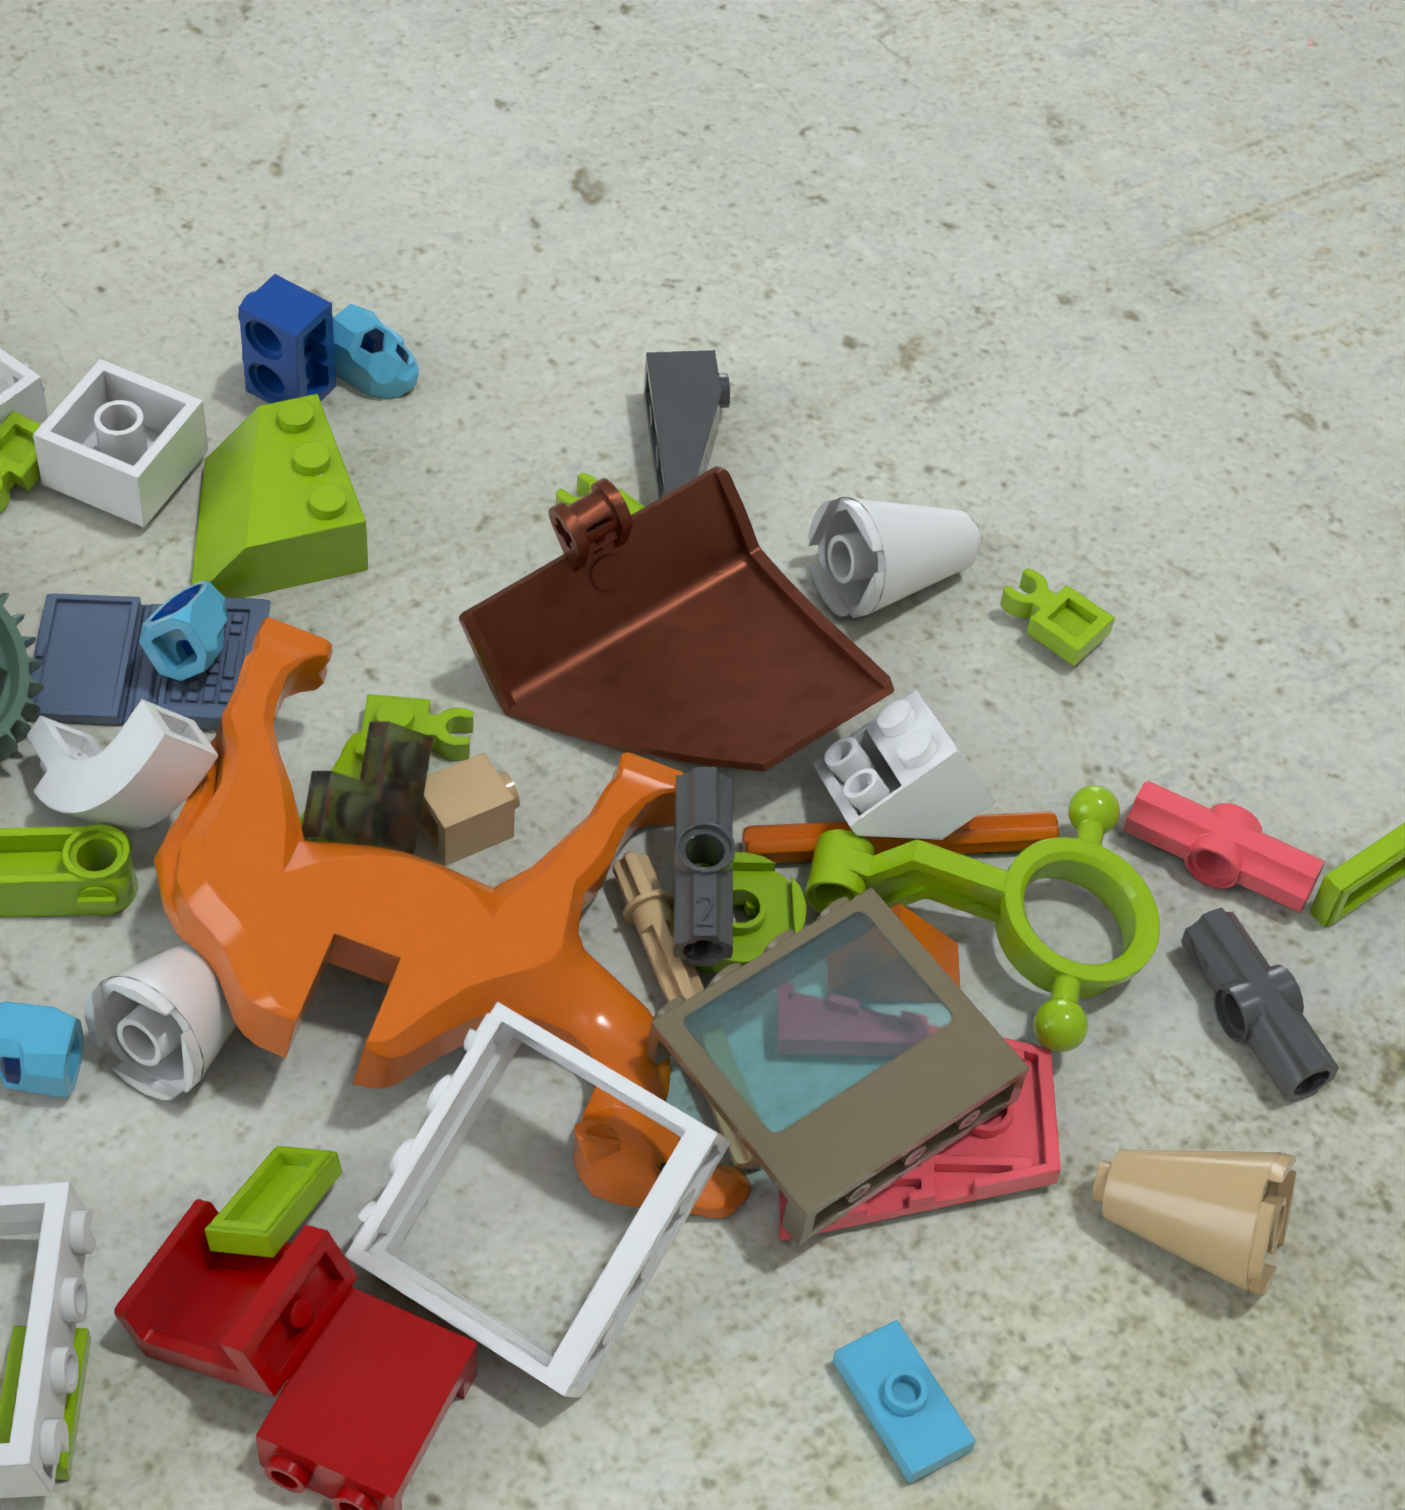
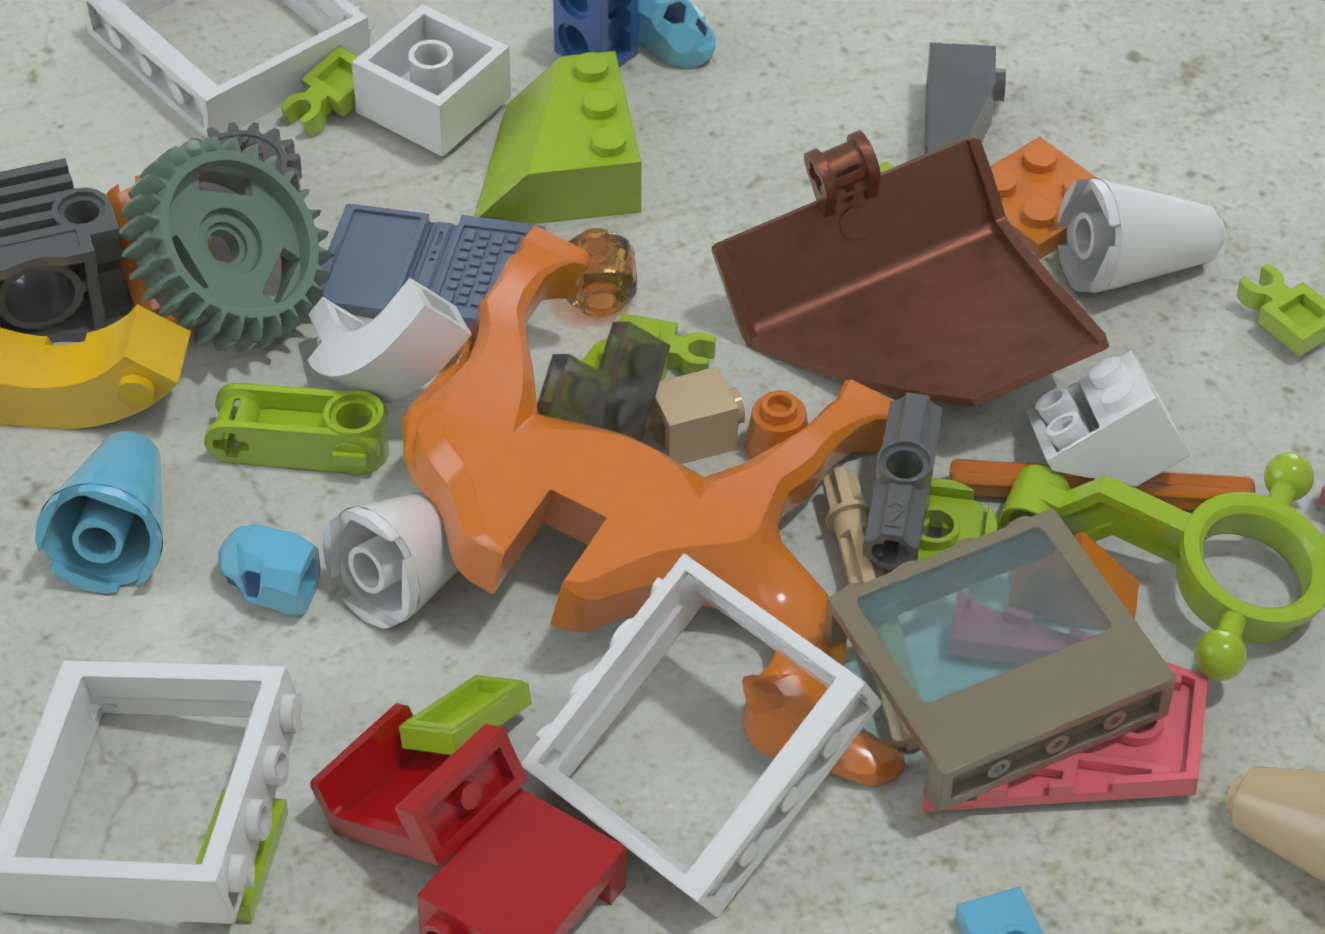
camera: 15 degrees right, 5 degrees down
(186, 632) = (464, 242): medium azure rock -> none
(354, 648) = (609, 277): none -> clear orange head
(552, 810) = (774, 420): none -> orange hat
(781, 504) = (1032, 192): none -> orange plate

